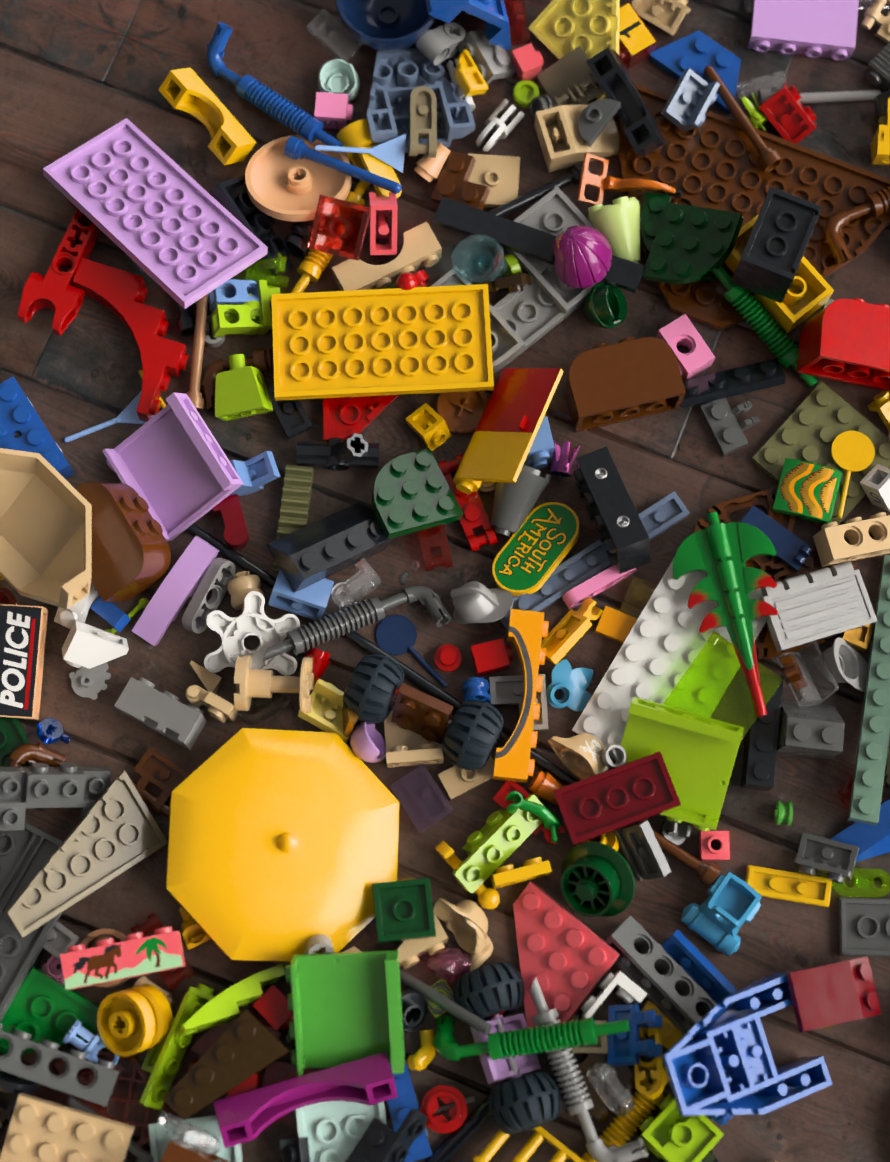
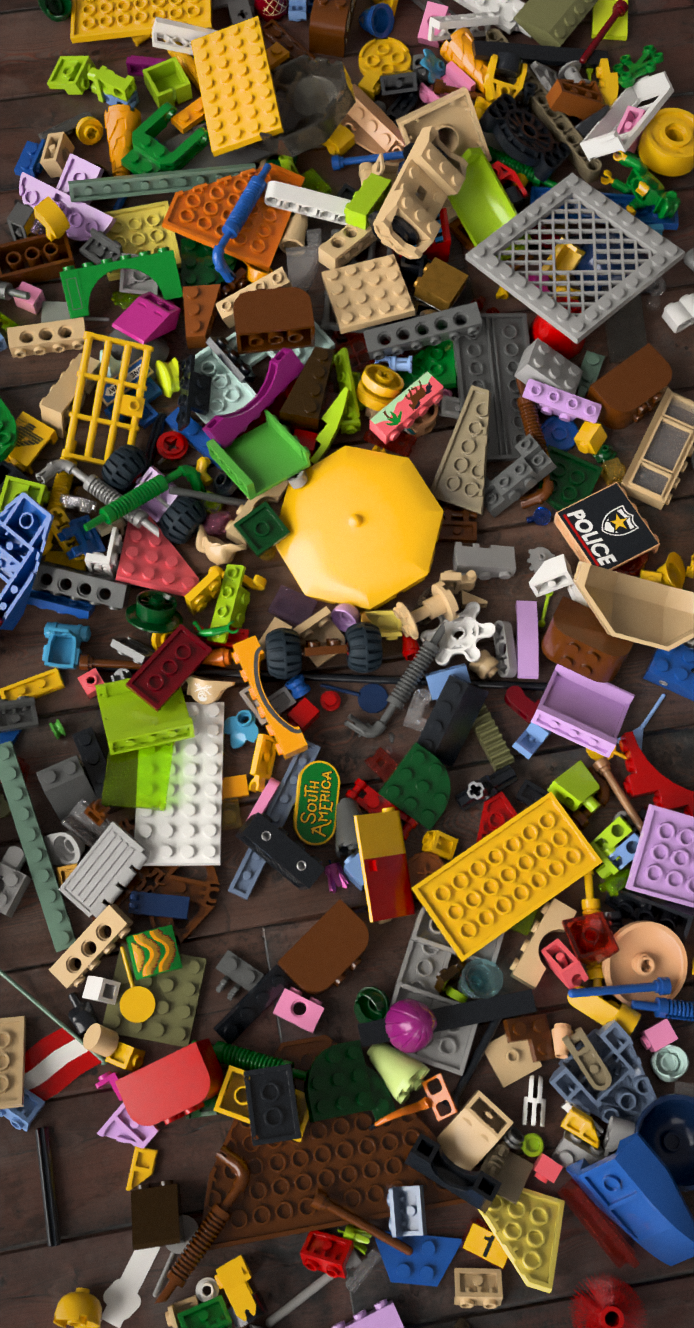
camera: 150 degrees right, 5 degrees down
(110, 614) = (551, 601): blue piece -> none
(188, 1134) = (305, 341): clear hinge -> none
(390, 151) = (595, 1022): light blue piece -> none
(408, 281) = (513, 939): red plate -> none
(480, 604) = (329, 742): light grey piece -> none
(595, 118) = (466, 1144): dark grey plate -> none
(617, 754) = (185, 699): light grey hinge -> none
(722, 554) = (187, 861): green animal -> none

